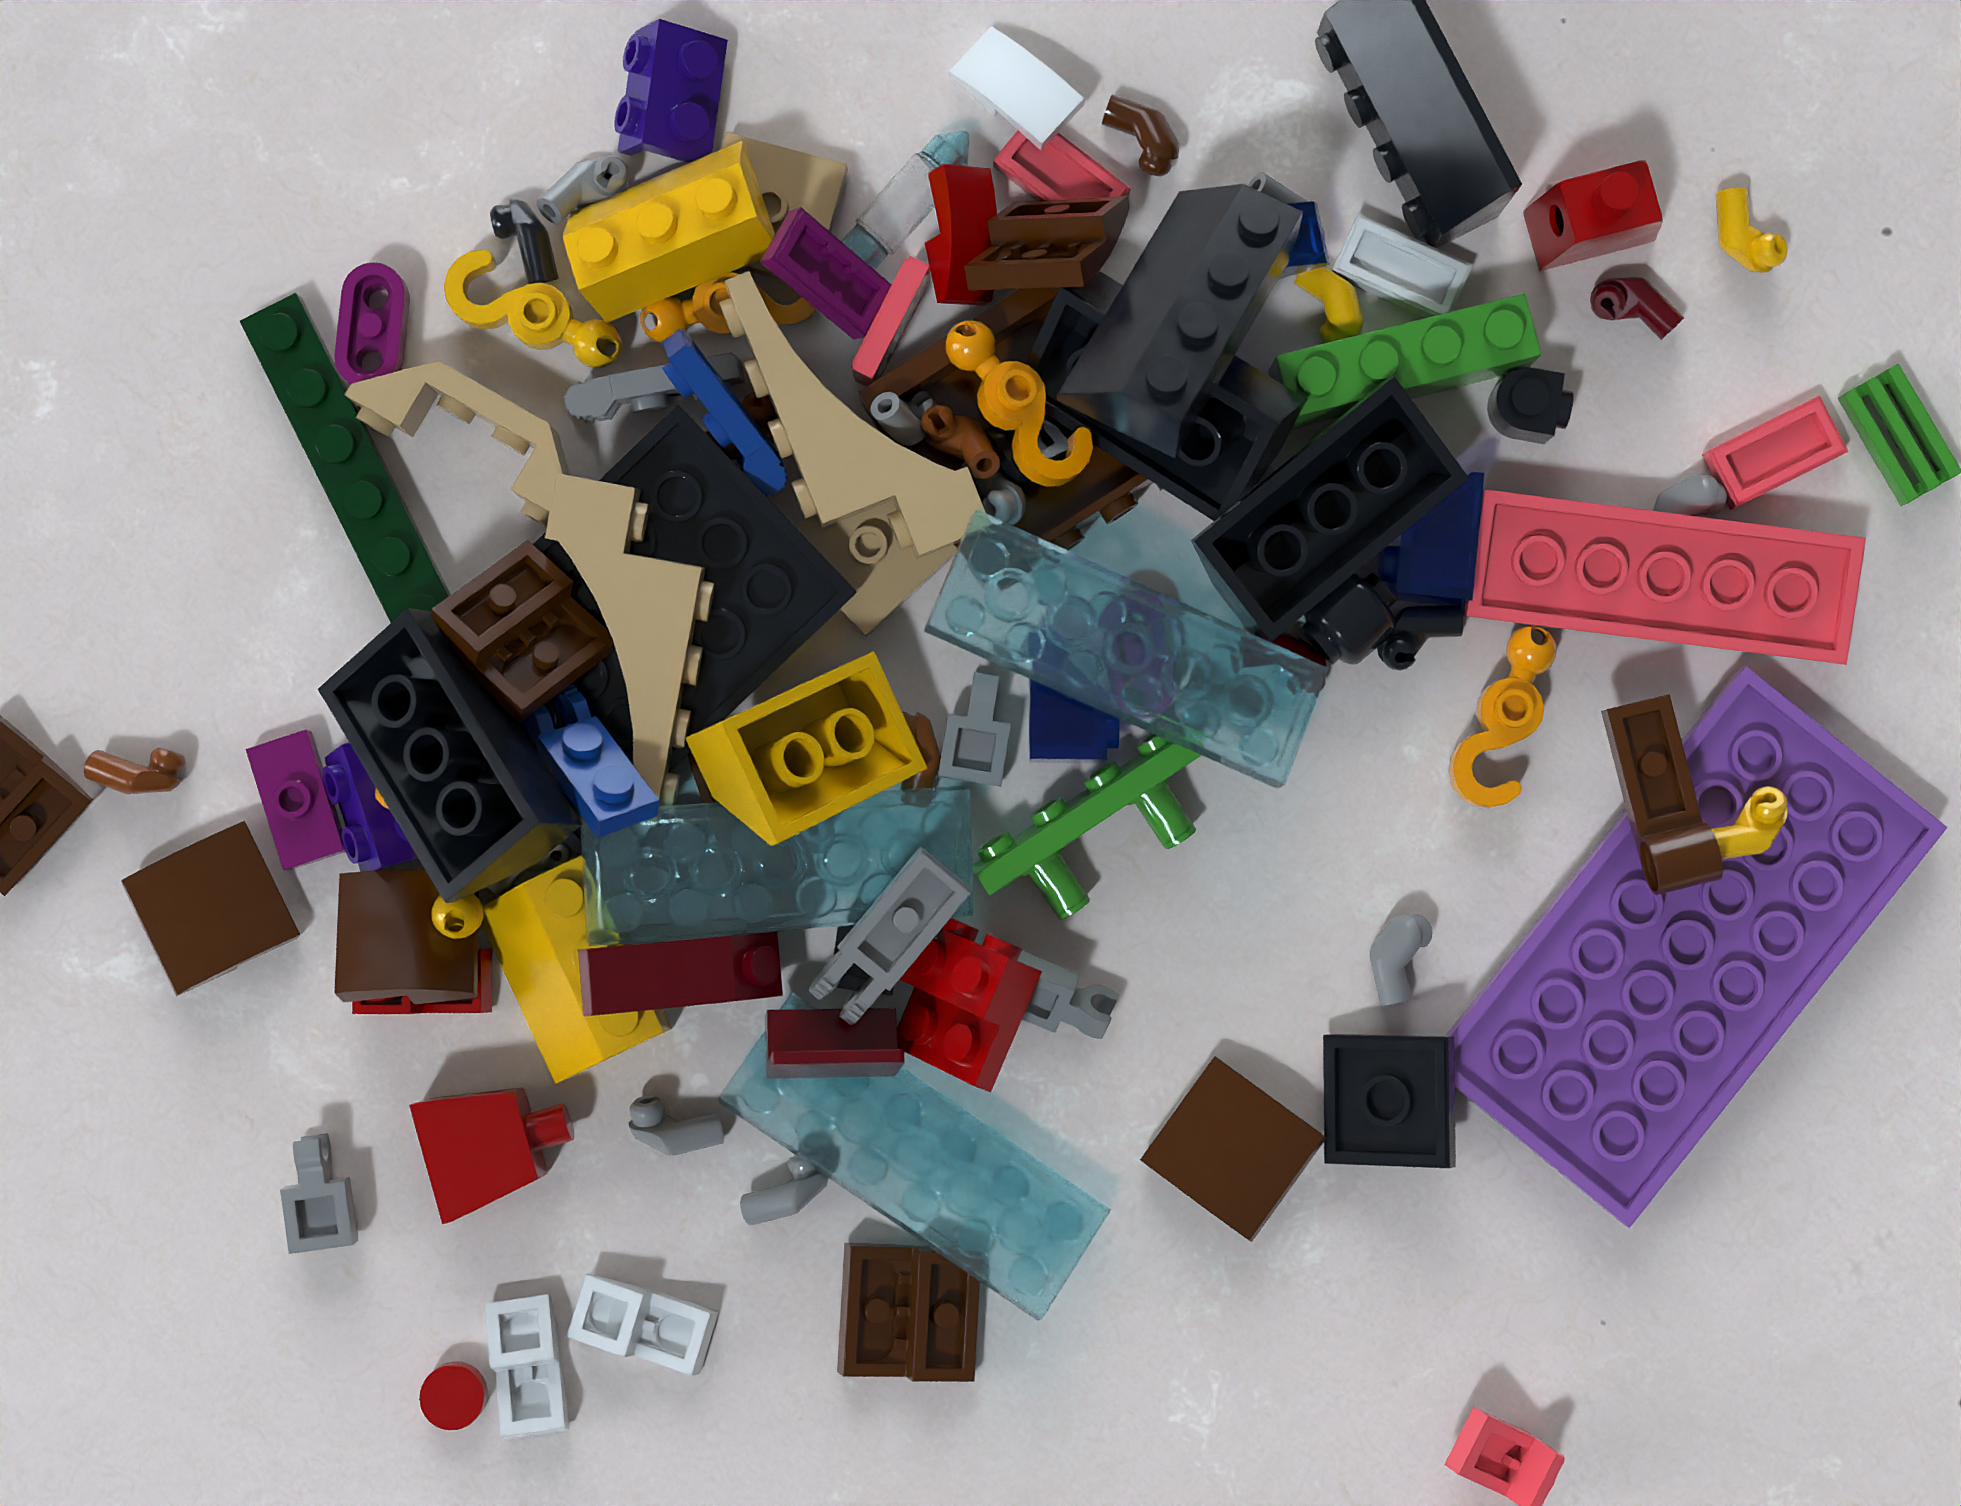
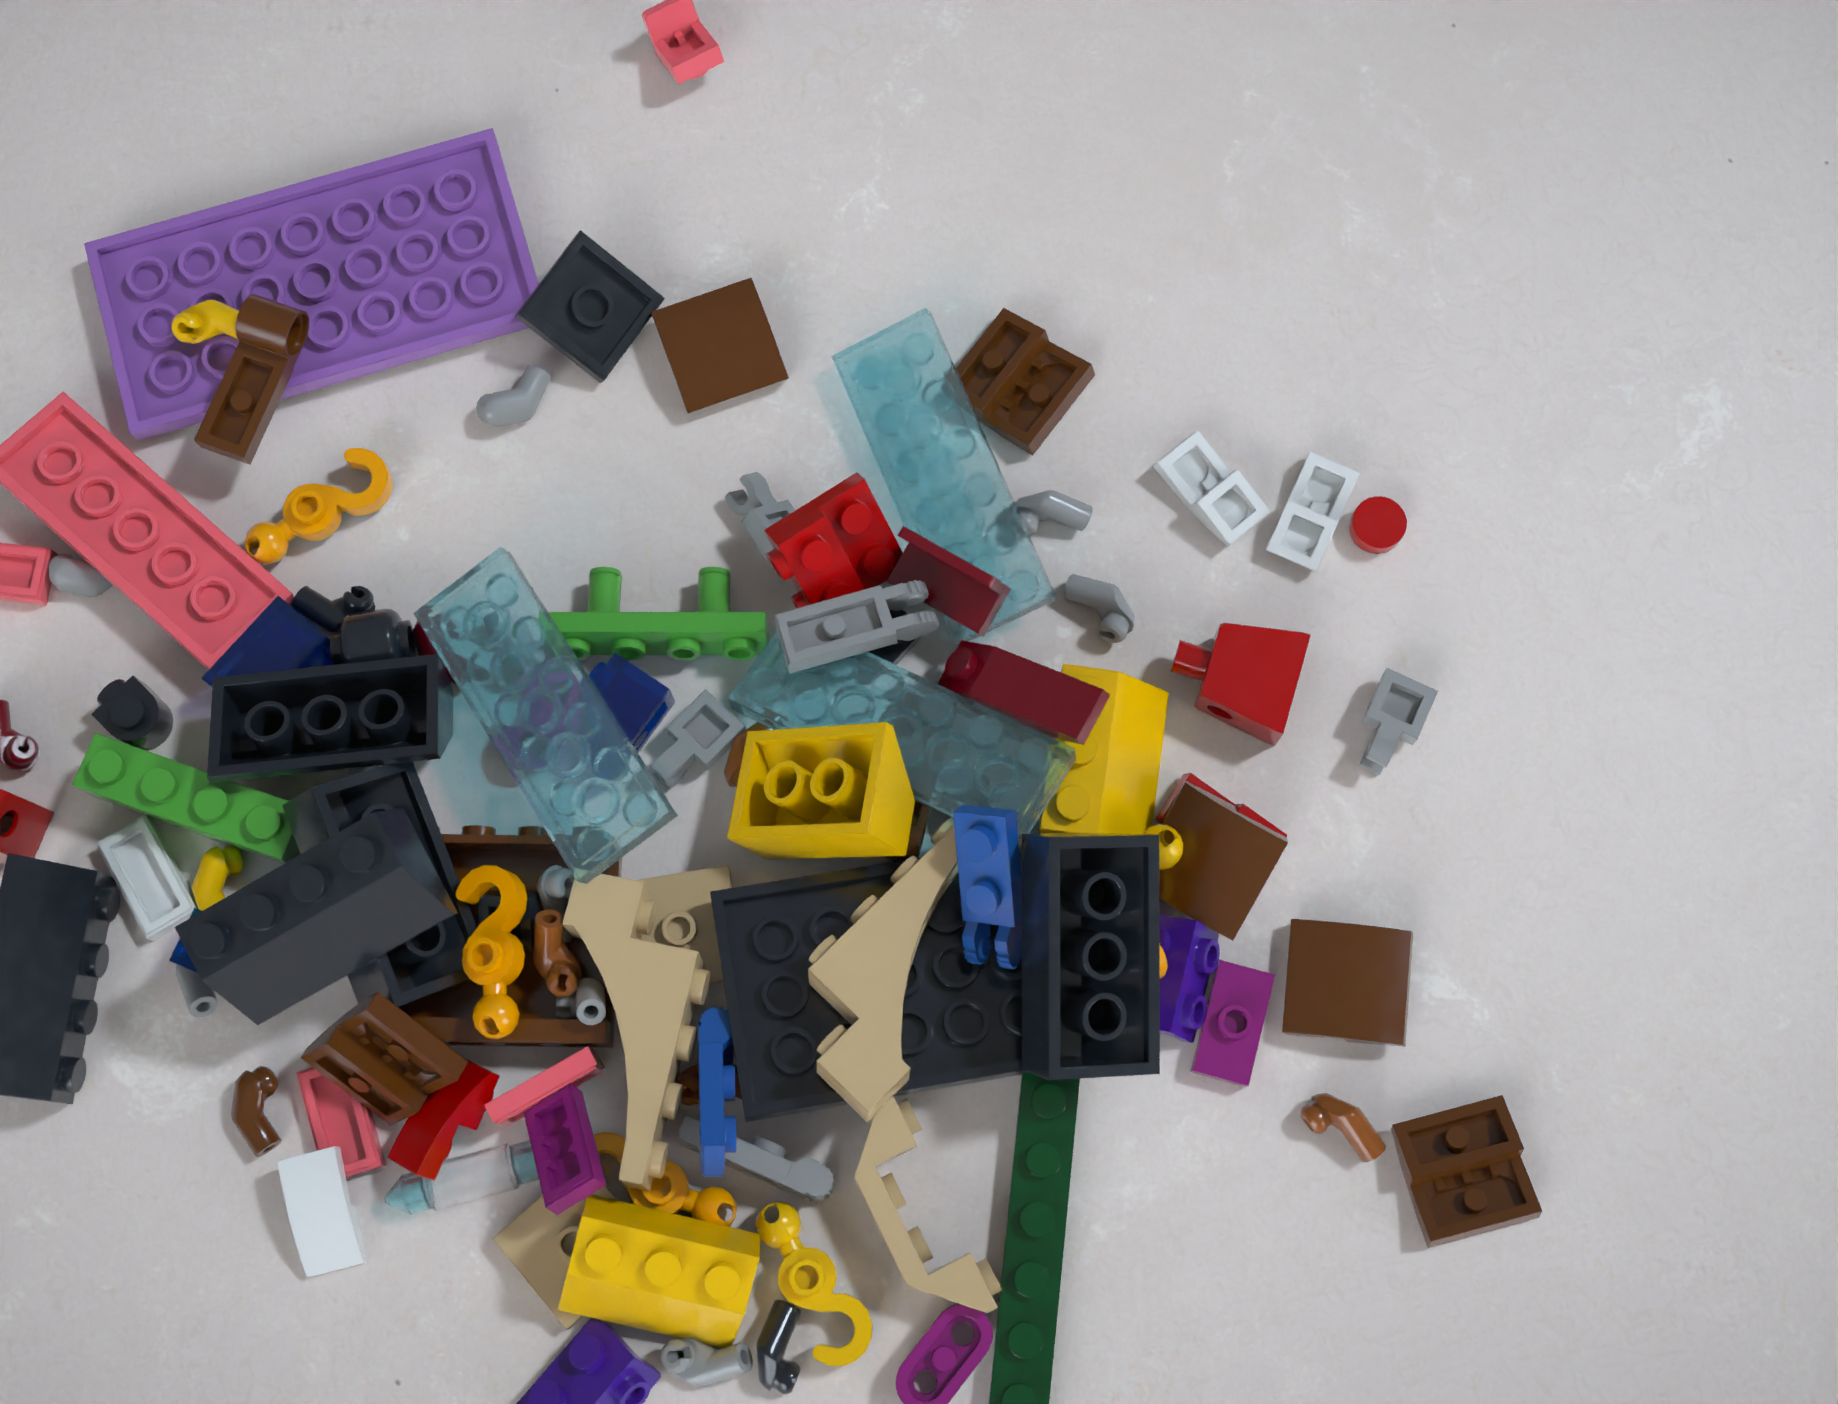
camera: 145 degrees left, 10 degrees down
(522, 631) = (975, 1015): reddish brown slope -> none

